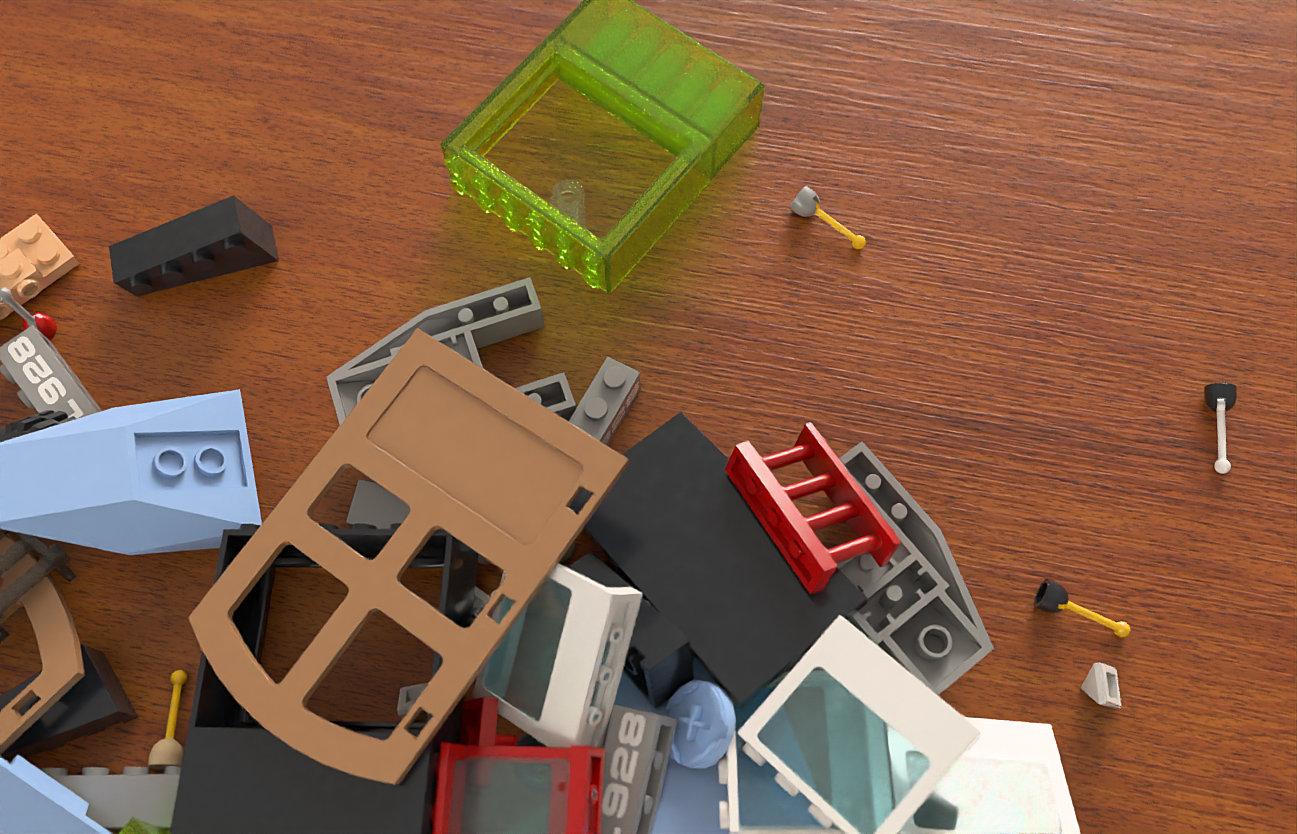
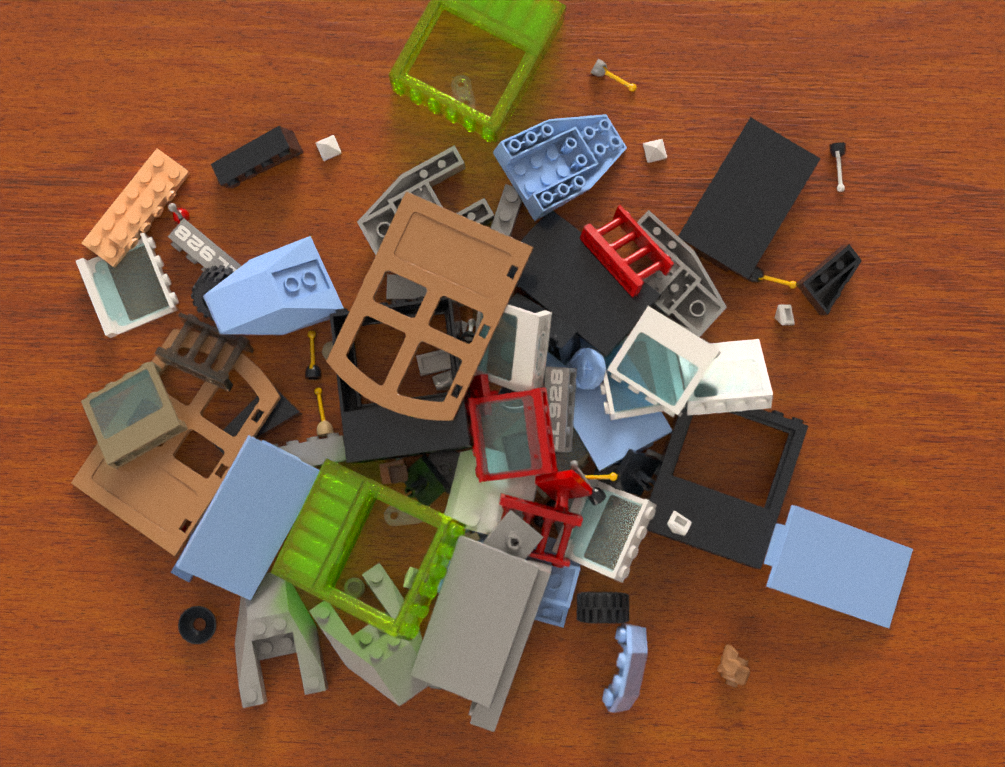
camera: 10 degrees left, 15 degrees up
(179, 637) = (312, 371): none -> hinge
(321, 258) = (328, 148): none -> white slope
(404, 661) = (433, 362): none -> white tile
(708, 332) = (559, 160): none -> light blue wedge
(885, 350) = (654, 151): none -> white slope
(1050, 458) = (748, 199): none -> black piece
(1198, 630) = (828, 279): none -> black wedge

